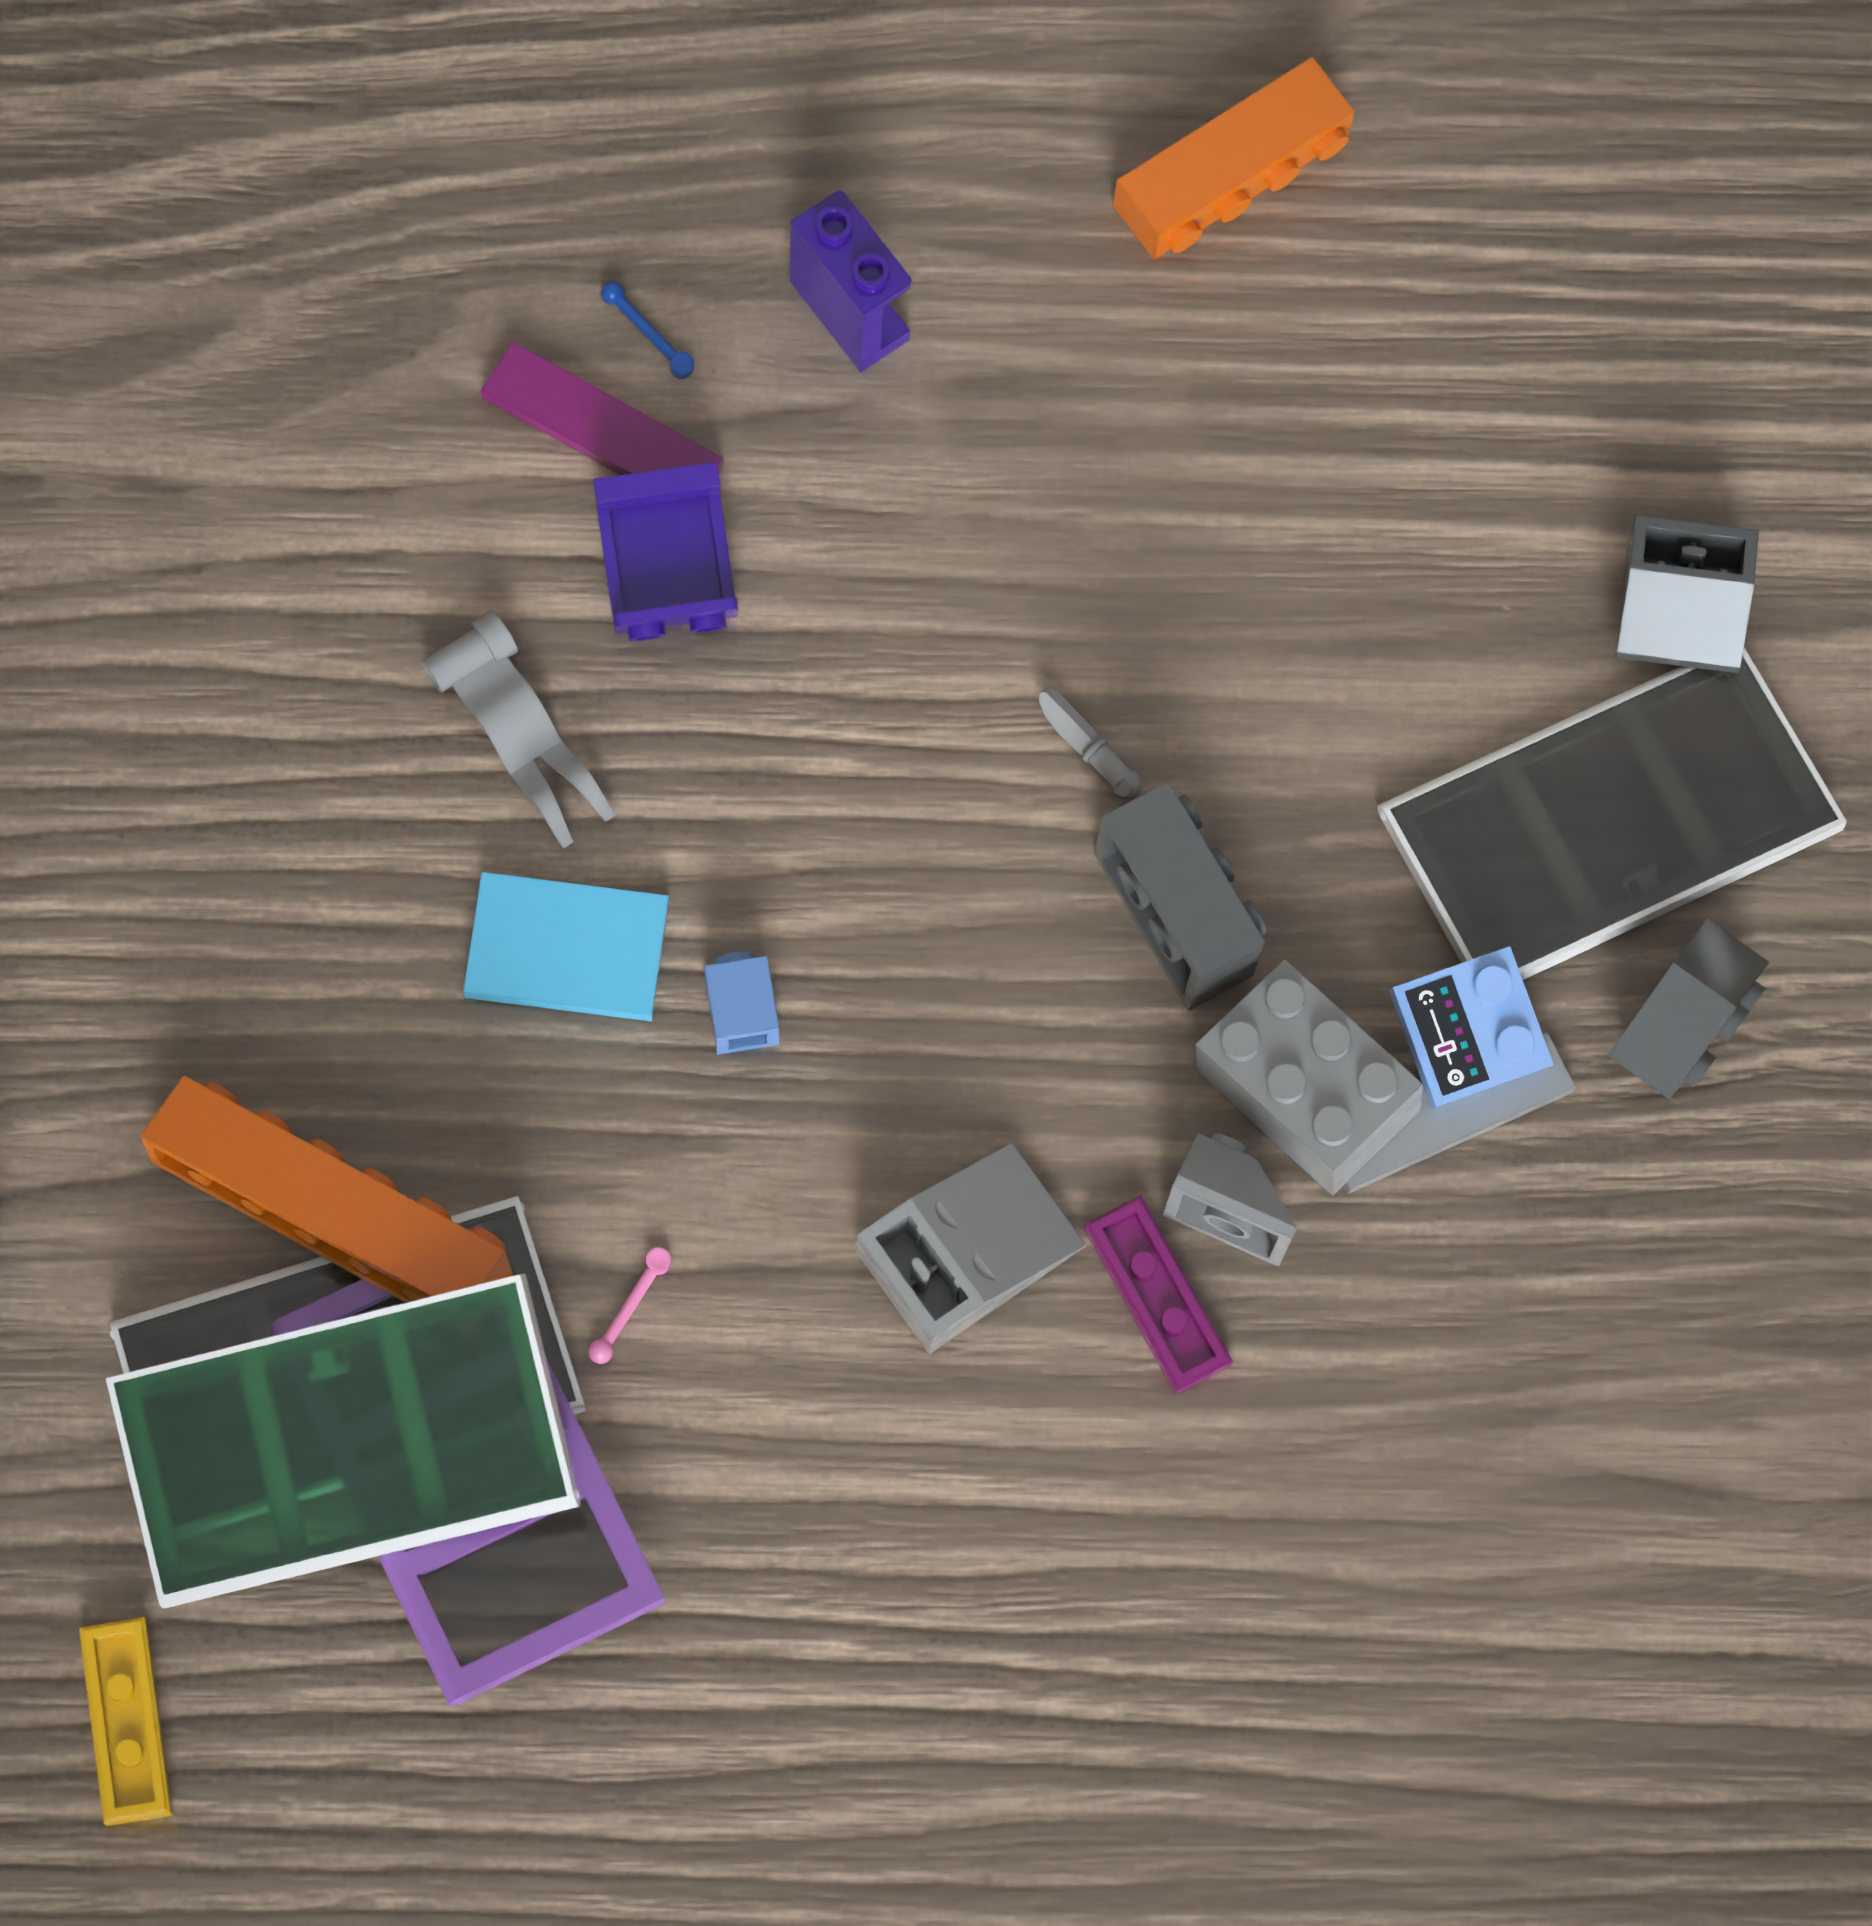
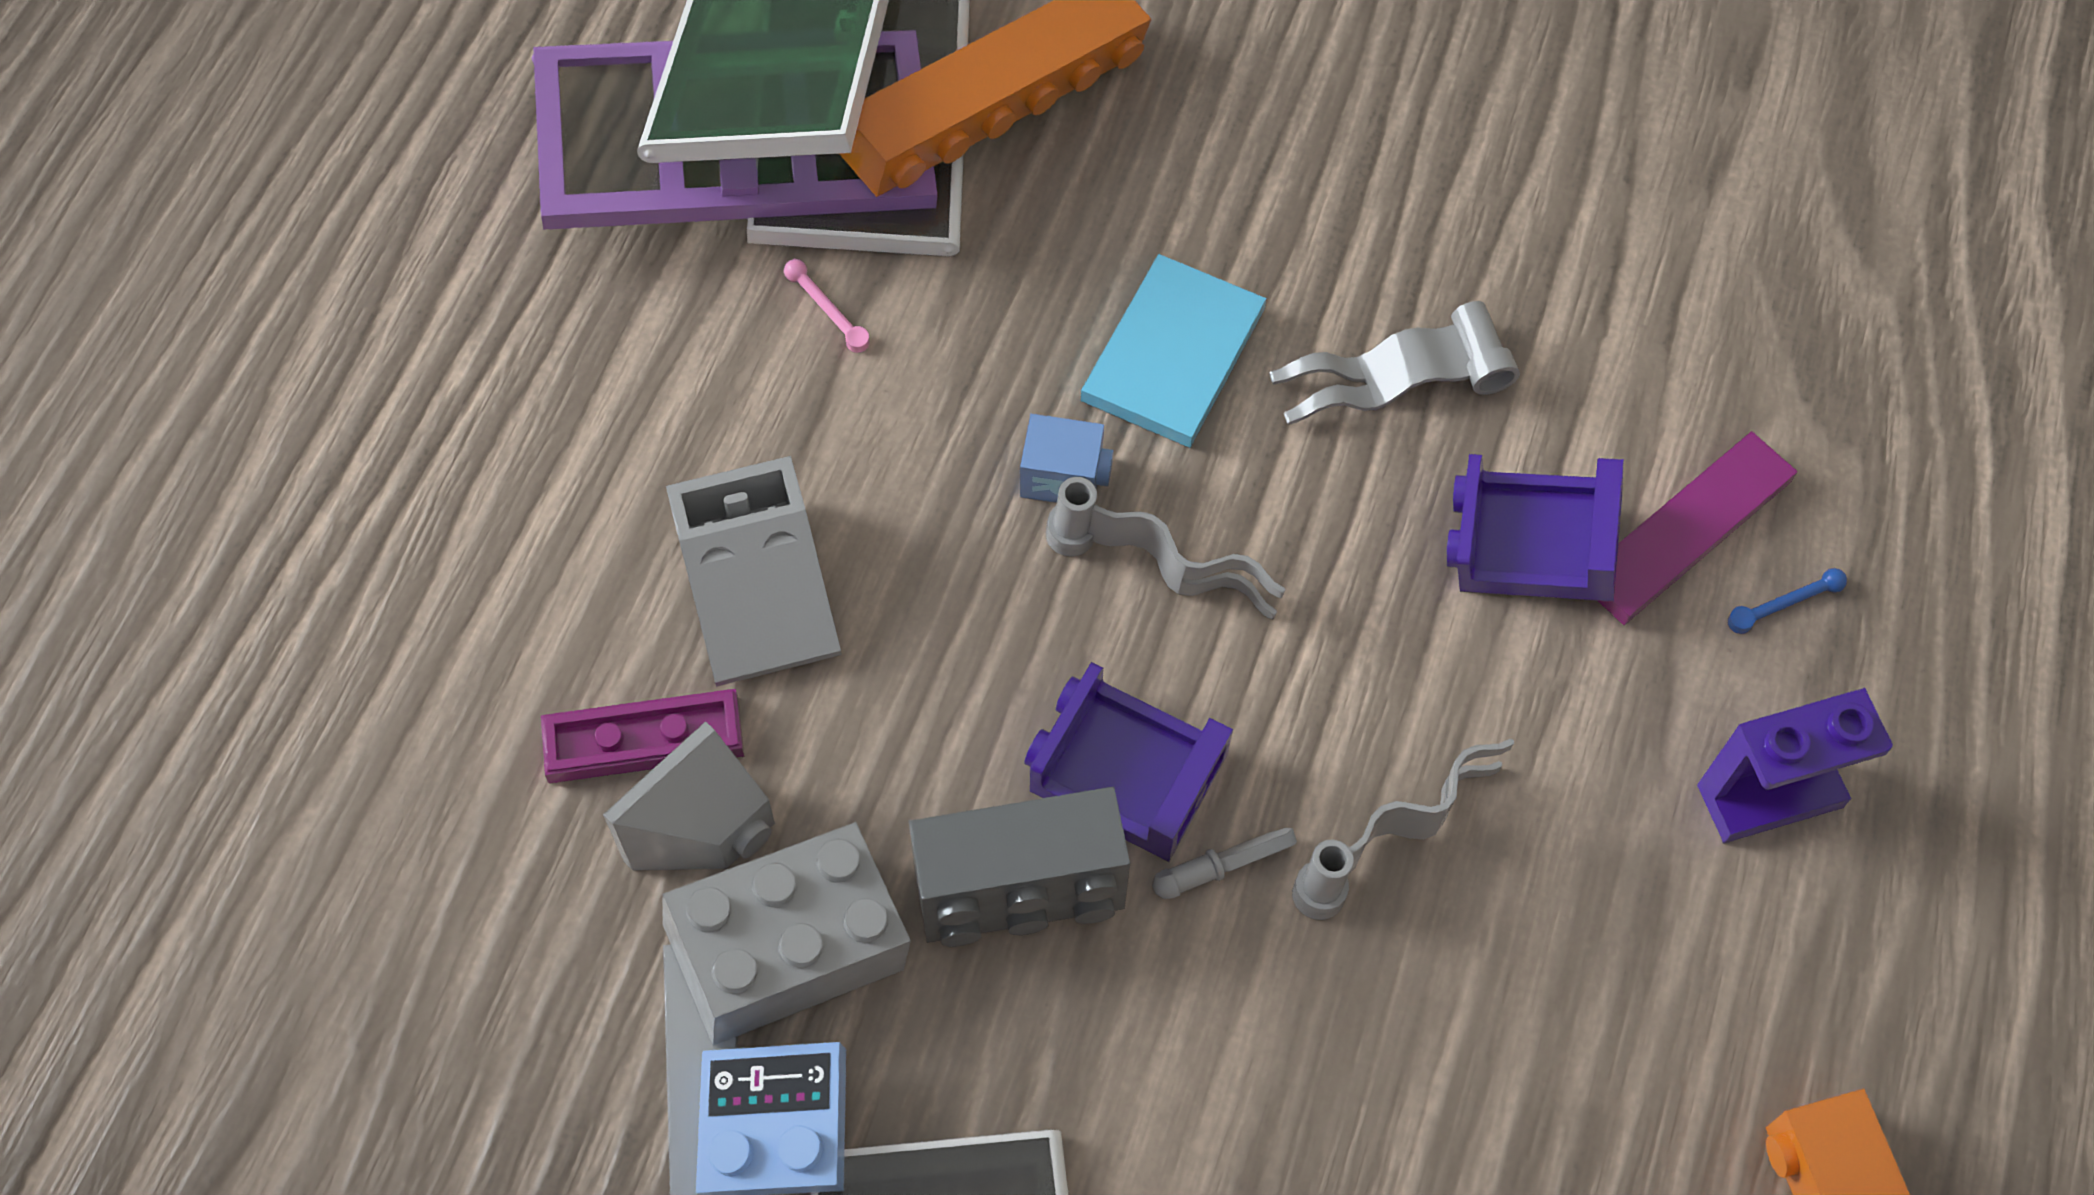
camera: 115 degrees right, 10 degrees down
(803, 974) = (1079, 523): none -> light grey flag
(1029, 848) = (1123, 743): none -> dark purple panel
(1082, 649) = (1324, 883): none -> light grey flag

